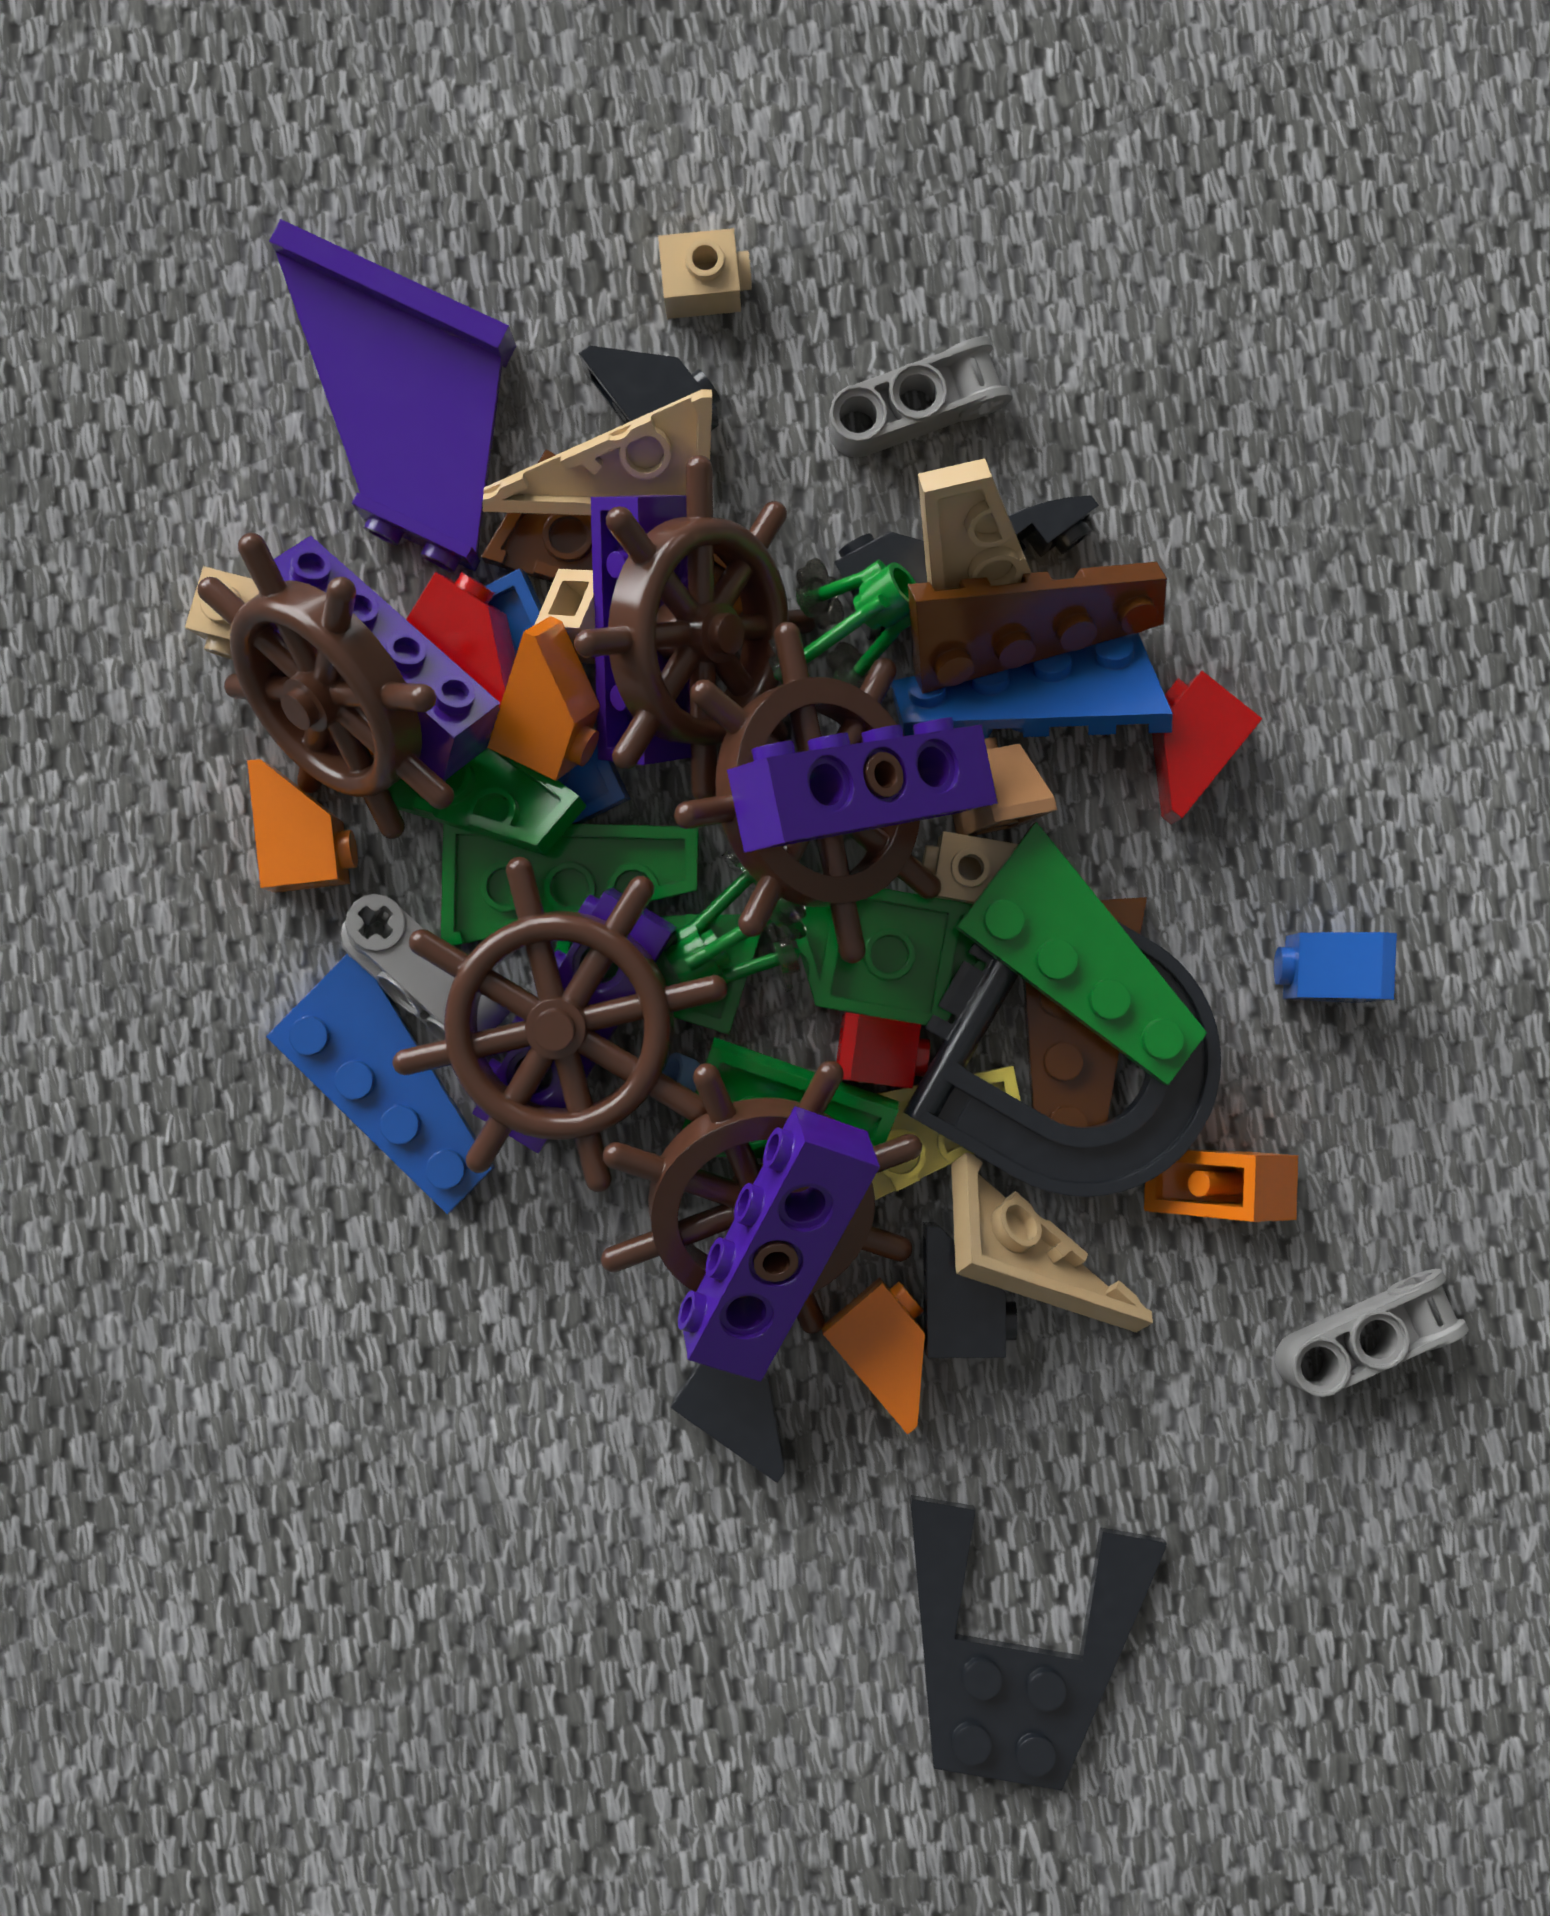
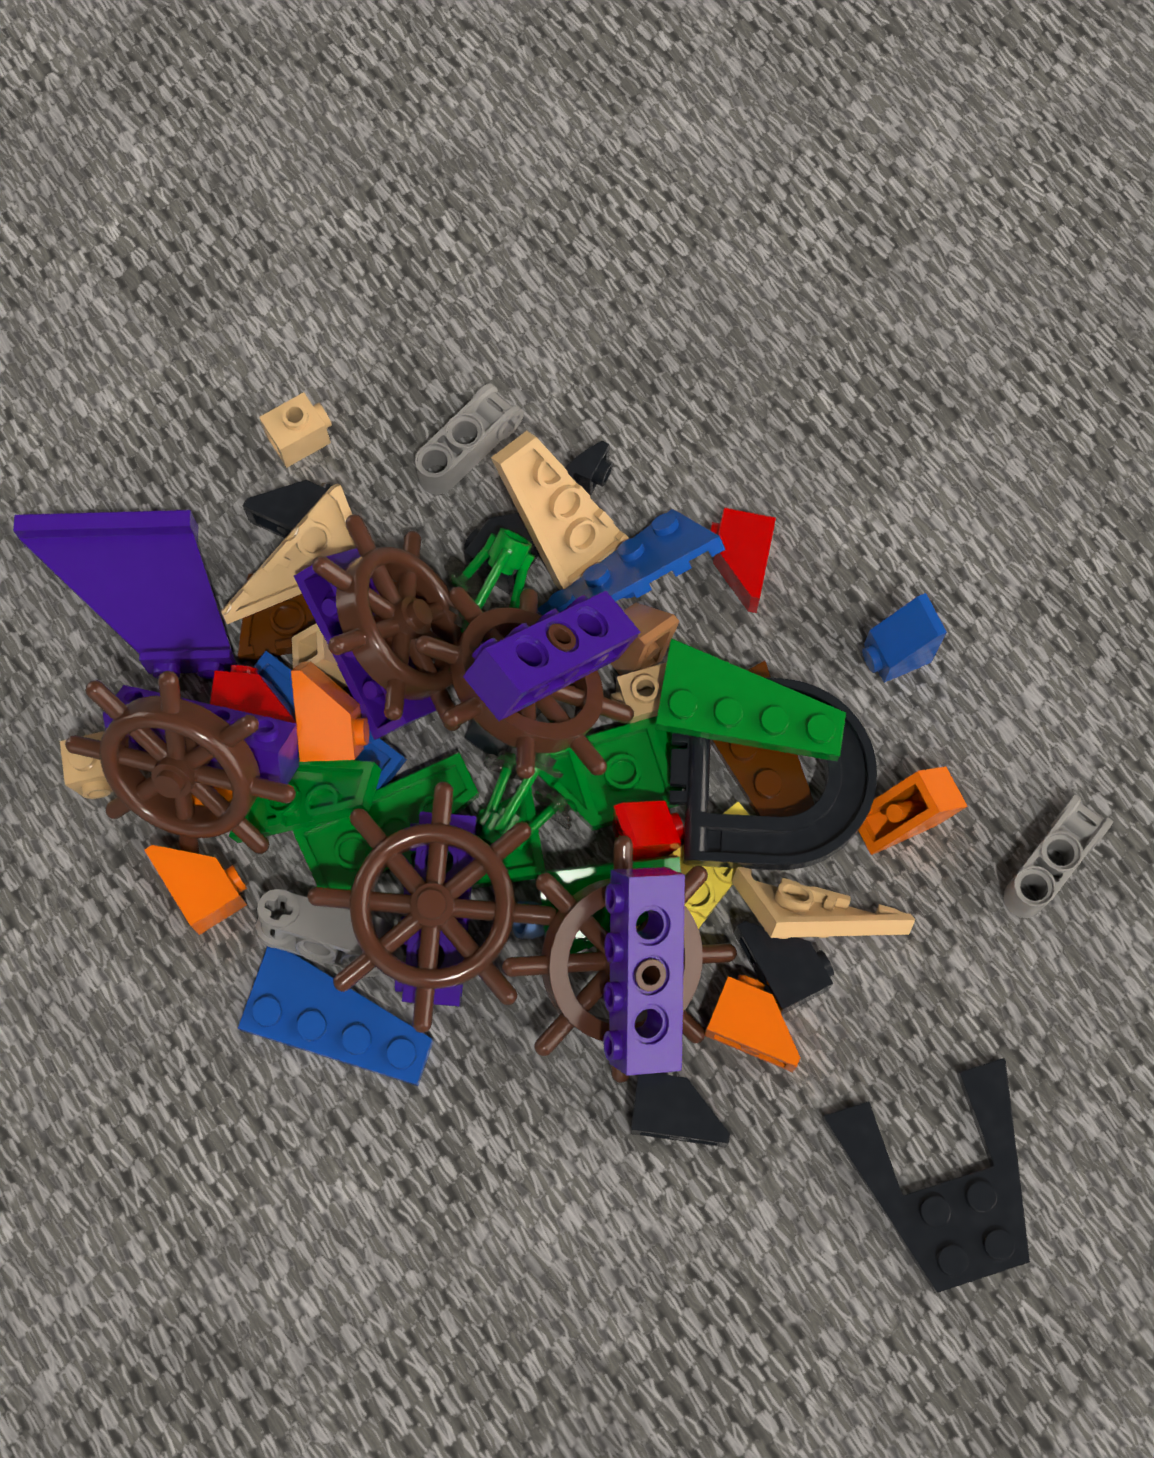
camera: 30 degrees left, 15 degrees down
(1005, 626) = (590, 535): reddish brown wing -> none

